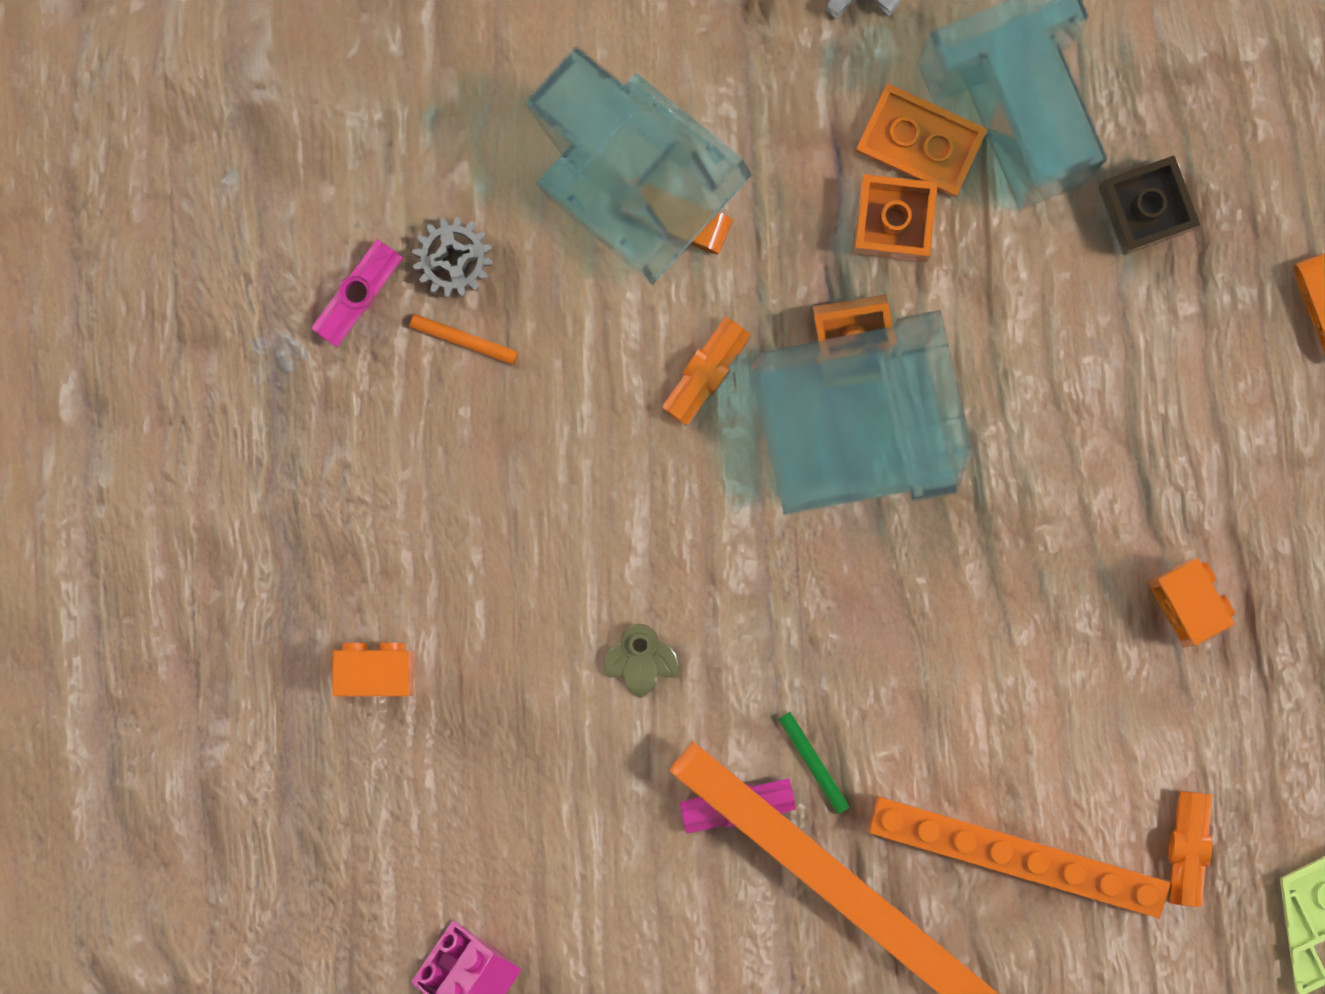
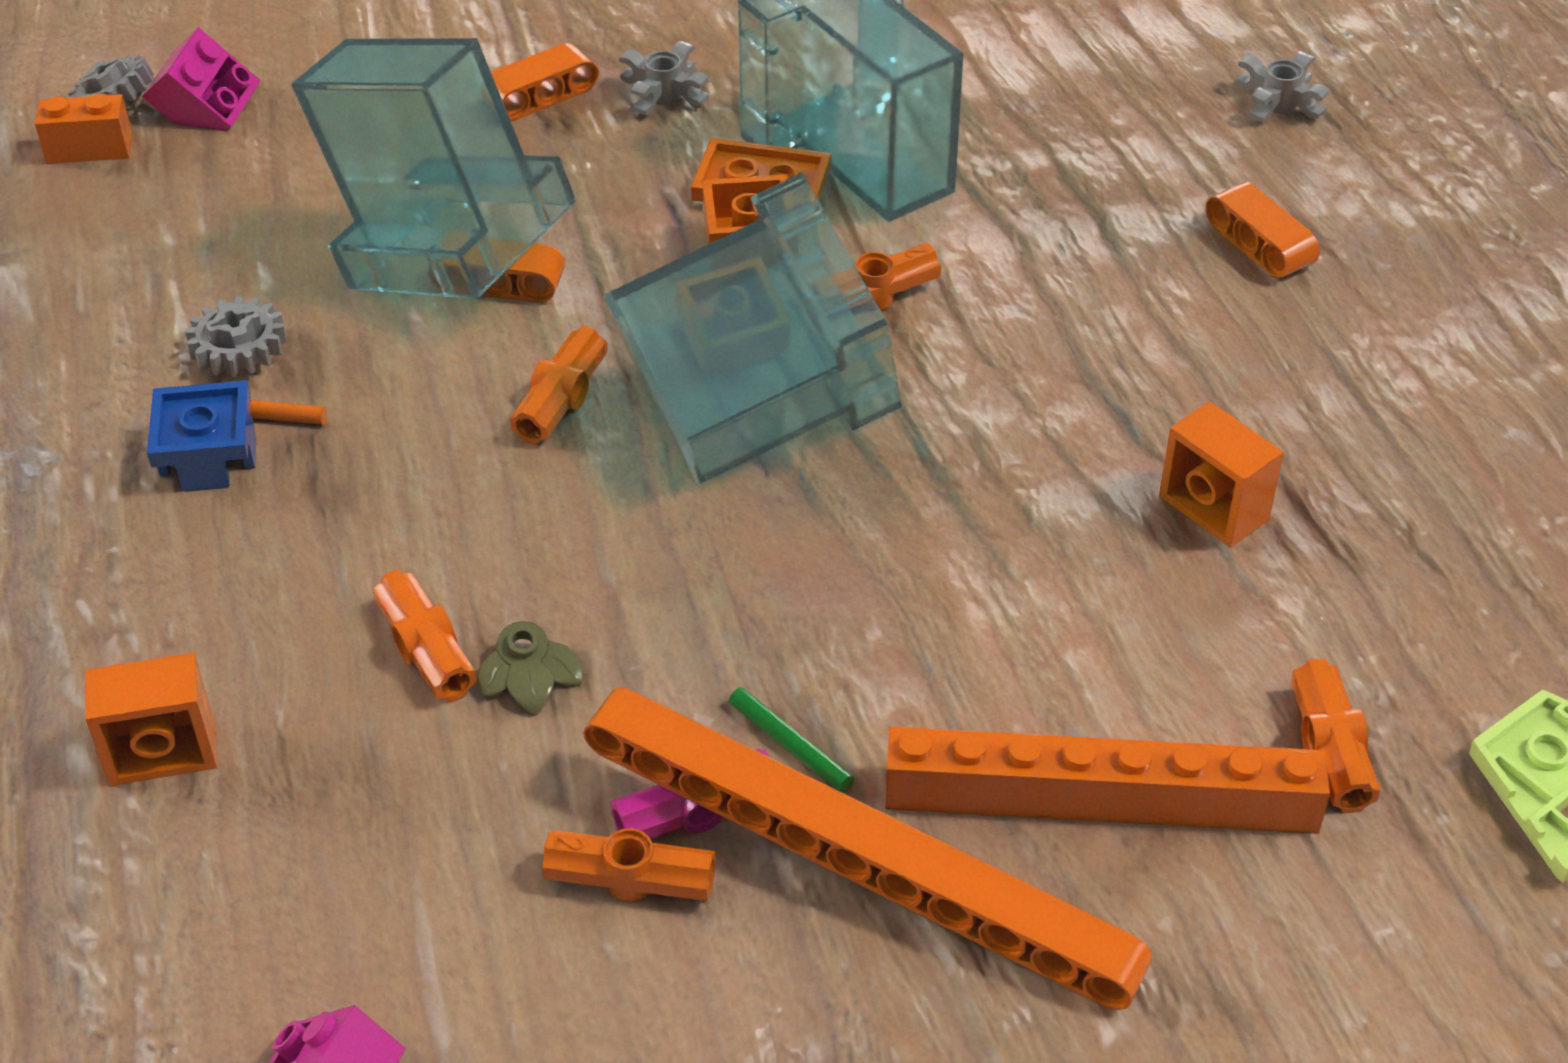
camera: 10 degrees left, 40 degrees down
(372, 273) = (118, 381): dark pink piece -> none
(420, 376) = (201, 430): none -> blue panel
(570, 616) = (424, 635): none -> orange piece
(707, 865) = (602, 863): none -> orange piece
(1008, 300) = (895, 273): none -> orange piece
(1148, 205) = (1027, 176): dark brown brick -> none

